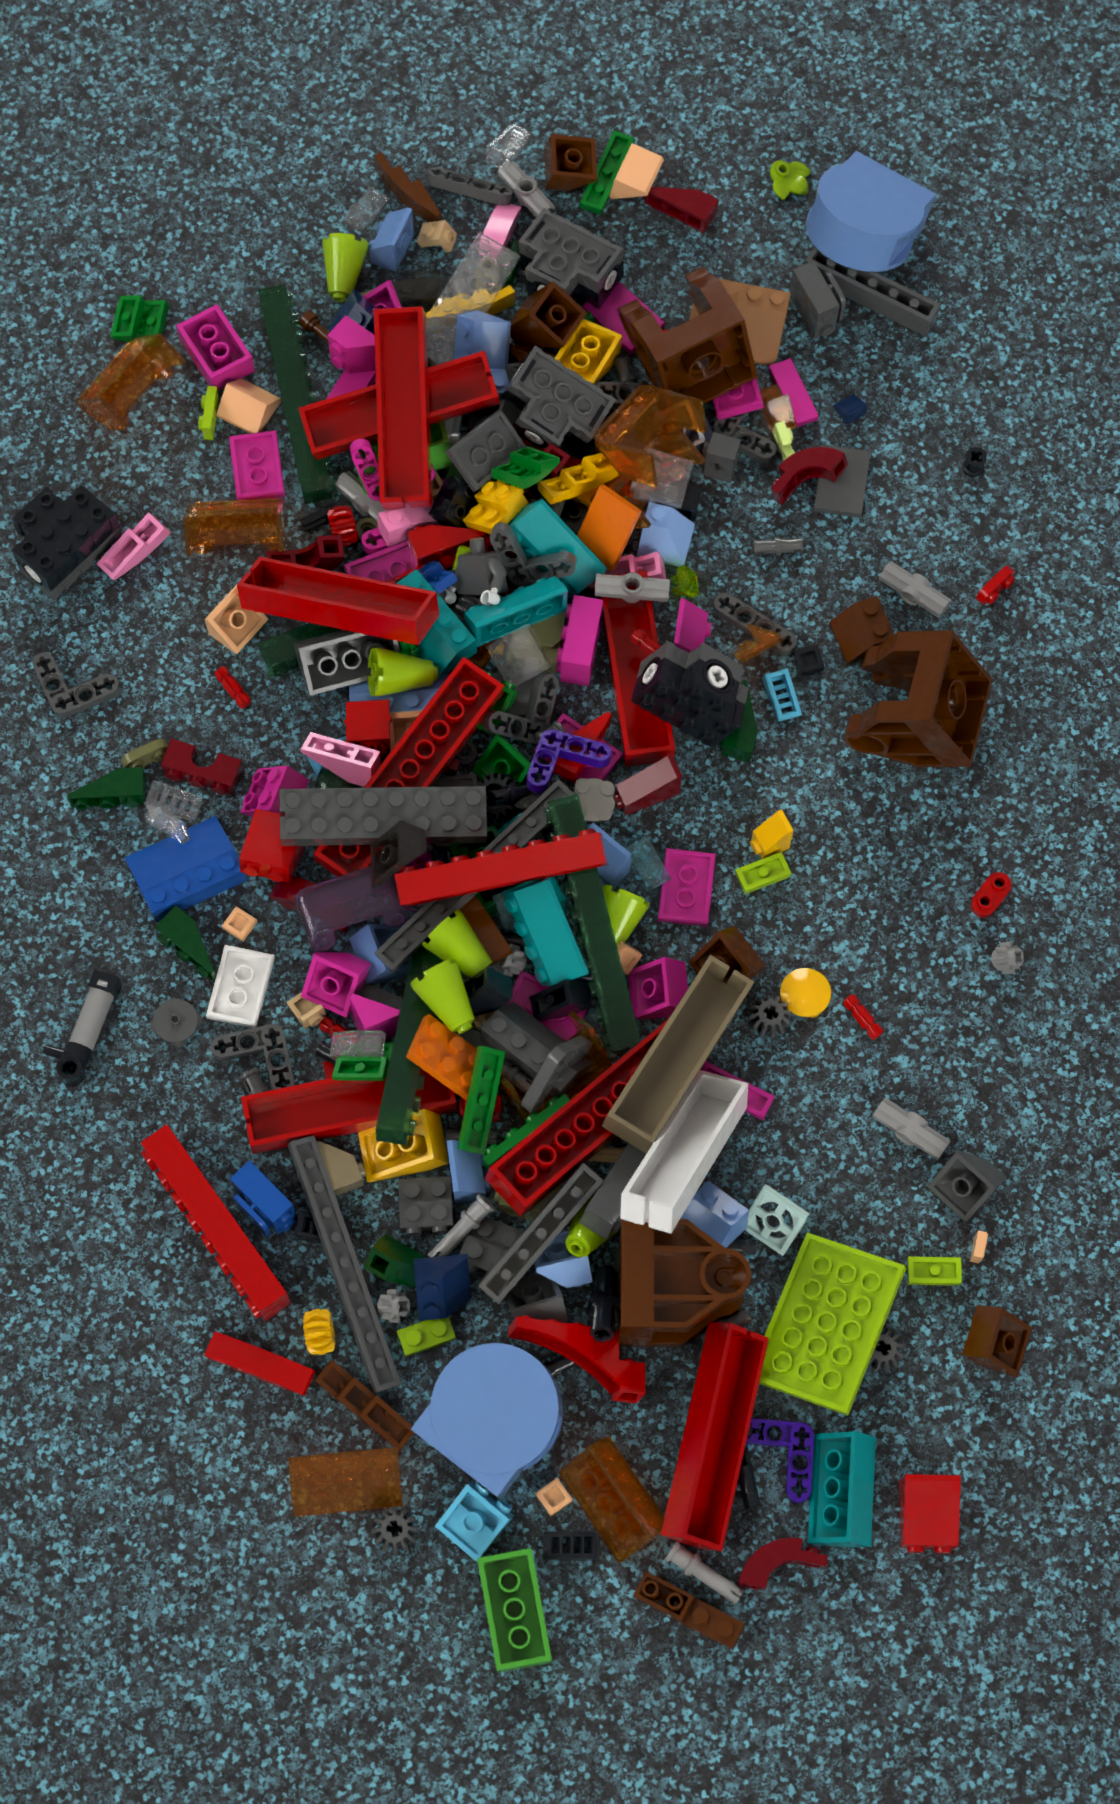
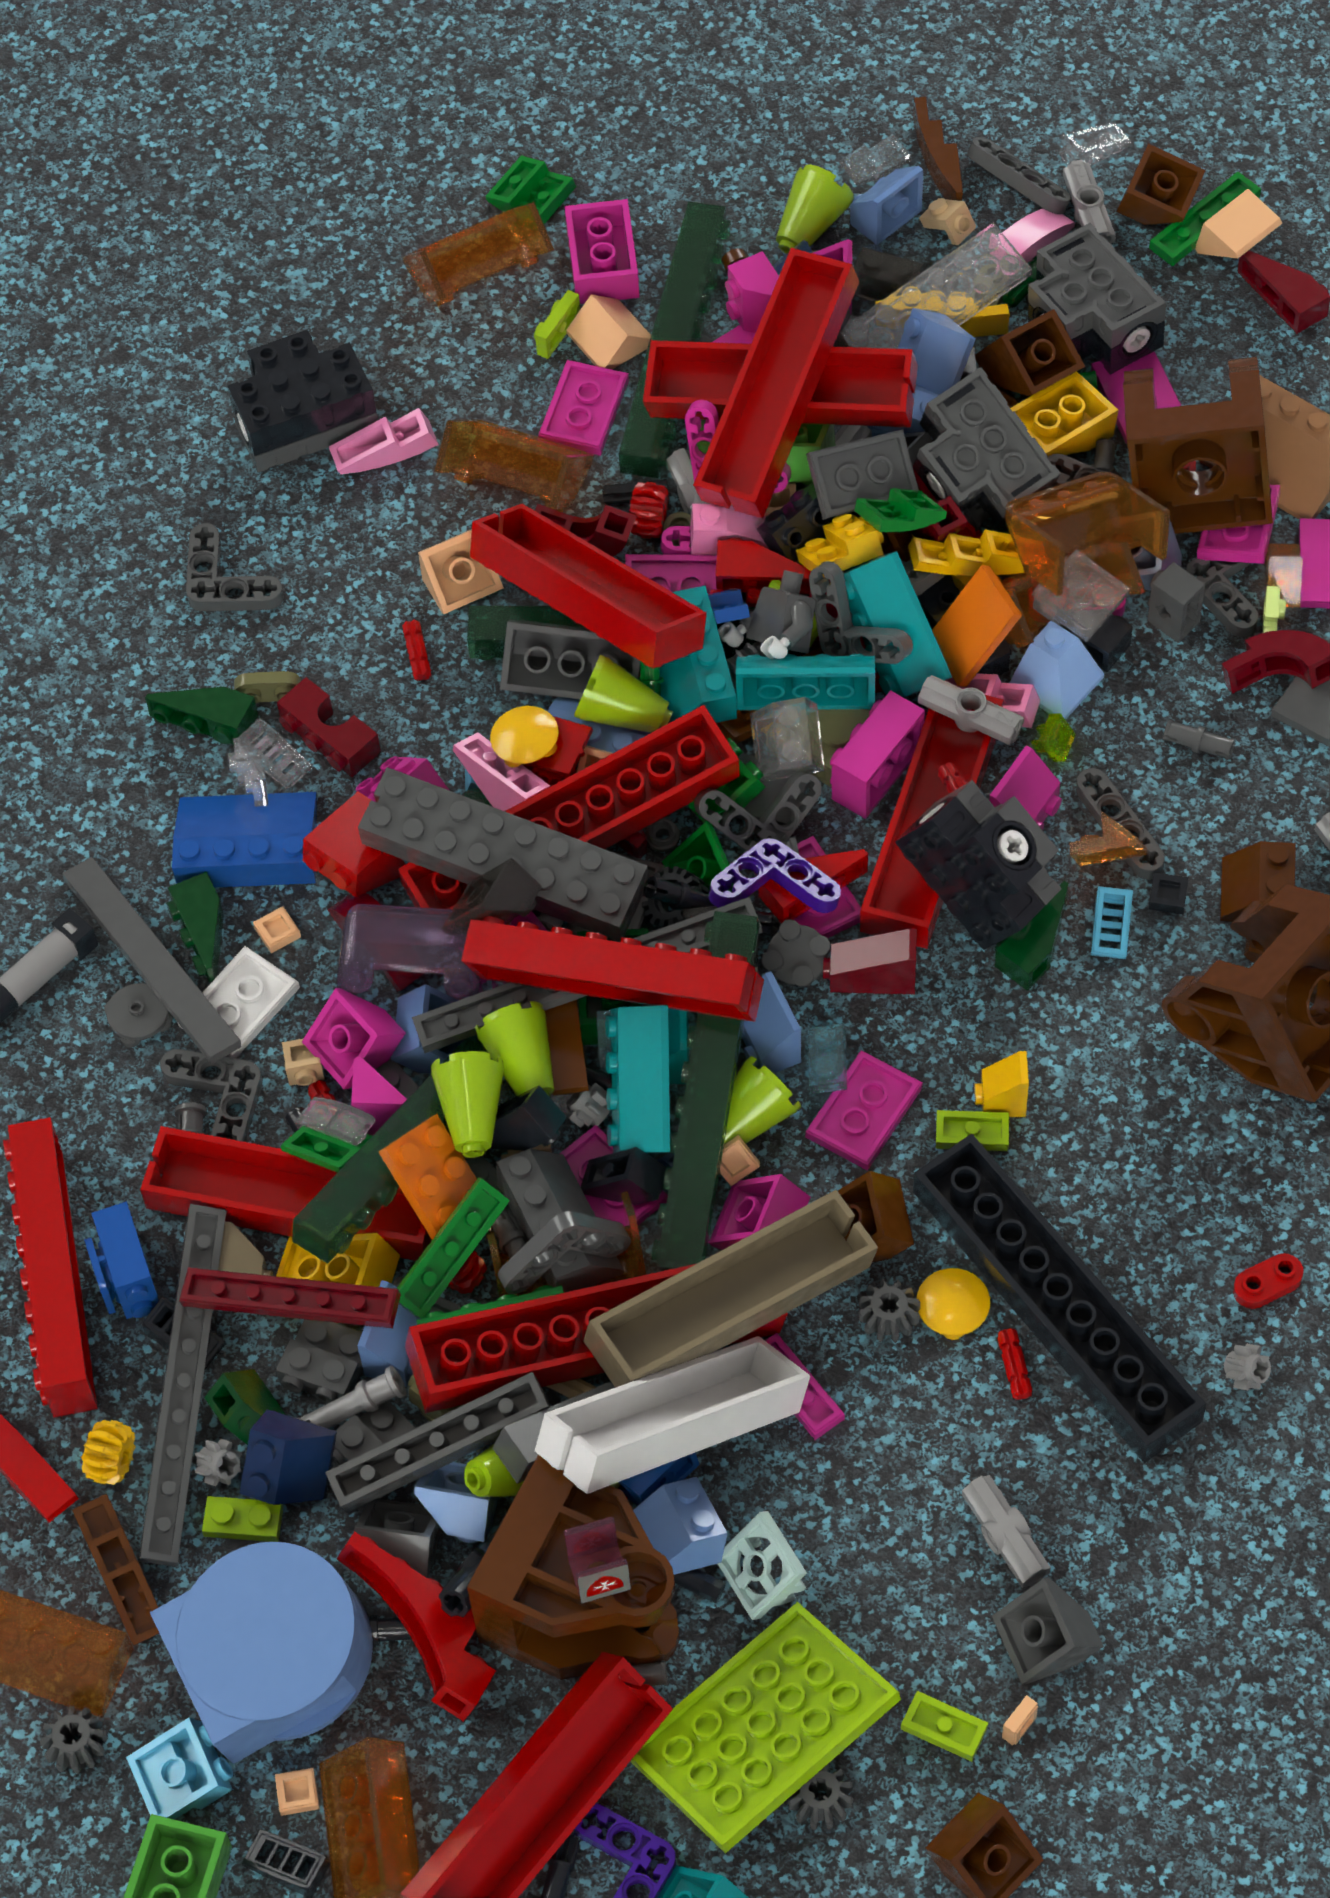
camera: 30 degrees right, 10 degrees down
(167, 981) = (152, 960): none -> dark grey tile
(346, 723) = (524, 735): none -> yellow dish
(391, 1178) = (290, 1297): none -> dark red tile
(695, 1263) = (593, 1544): none -> clear pink piece
(871, 962) = (1059, 1298): none -> black brick

